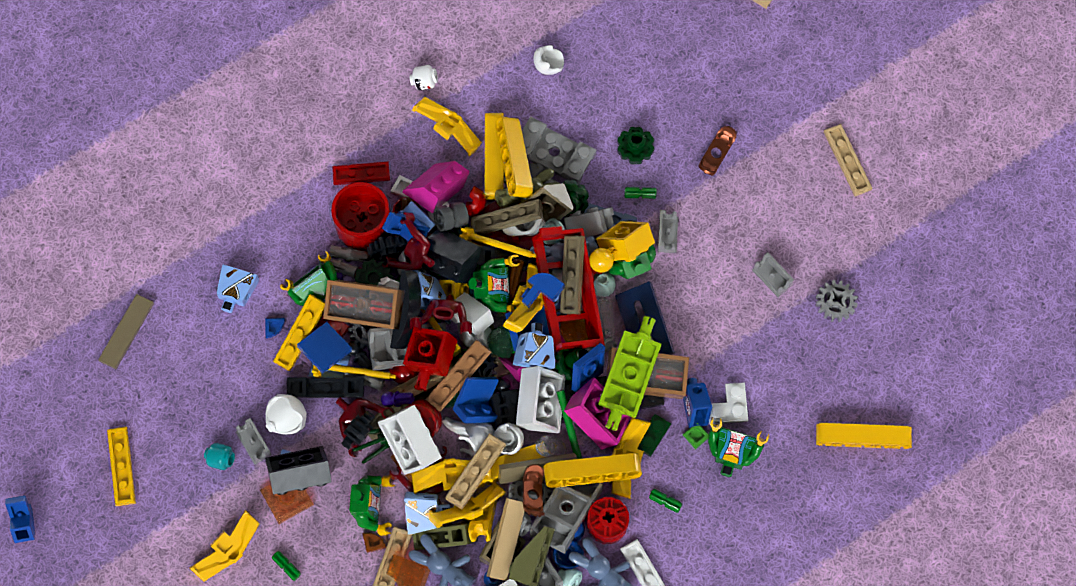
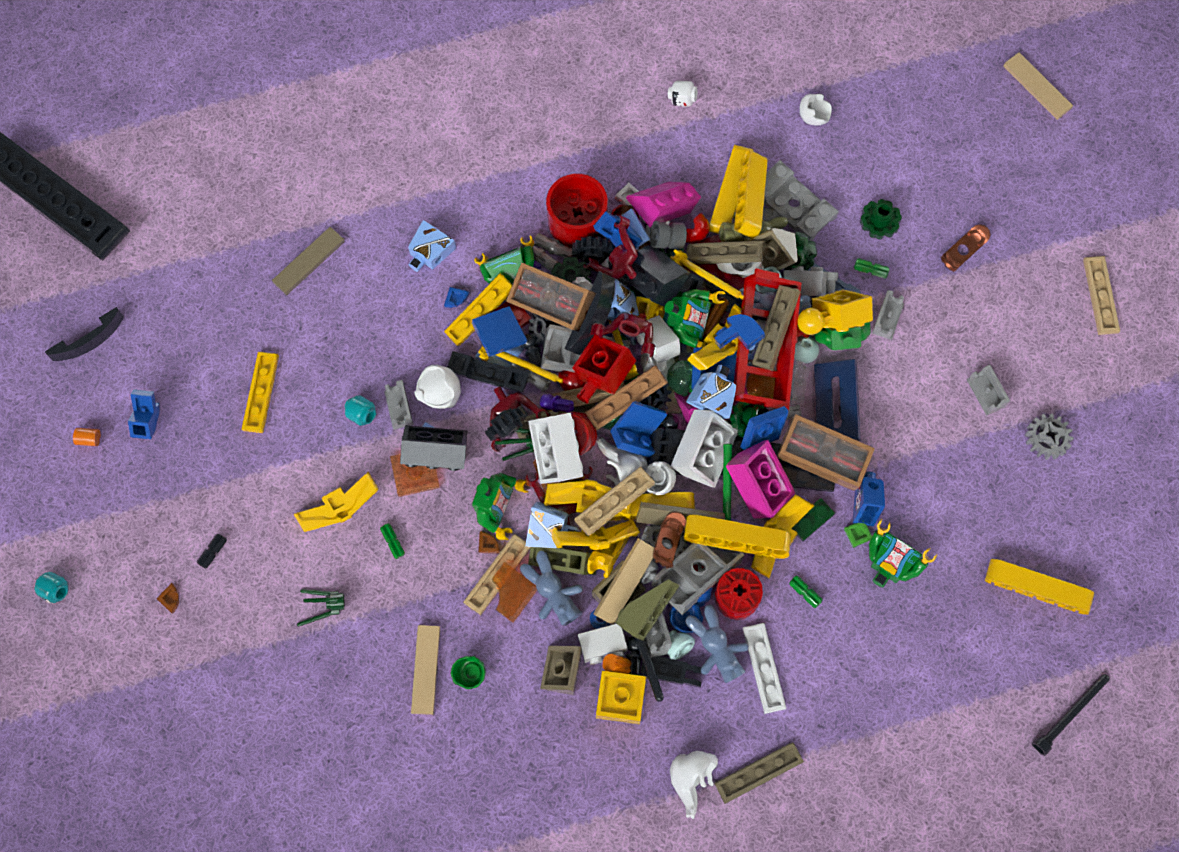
camera: 20 degrees right, 0 degrees up
(361, 173) = (603, 172): red tile -> none
(448, 124) = (694, 146): yellow plate -> none
(550, 446) = (700, 499): clear plate -> none
(630, 373) = (806, 446): lime plate -> none
(735, 407) = (908, 516): white plate -> none
(904, 570) = (1044, 743): none -> black piece

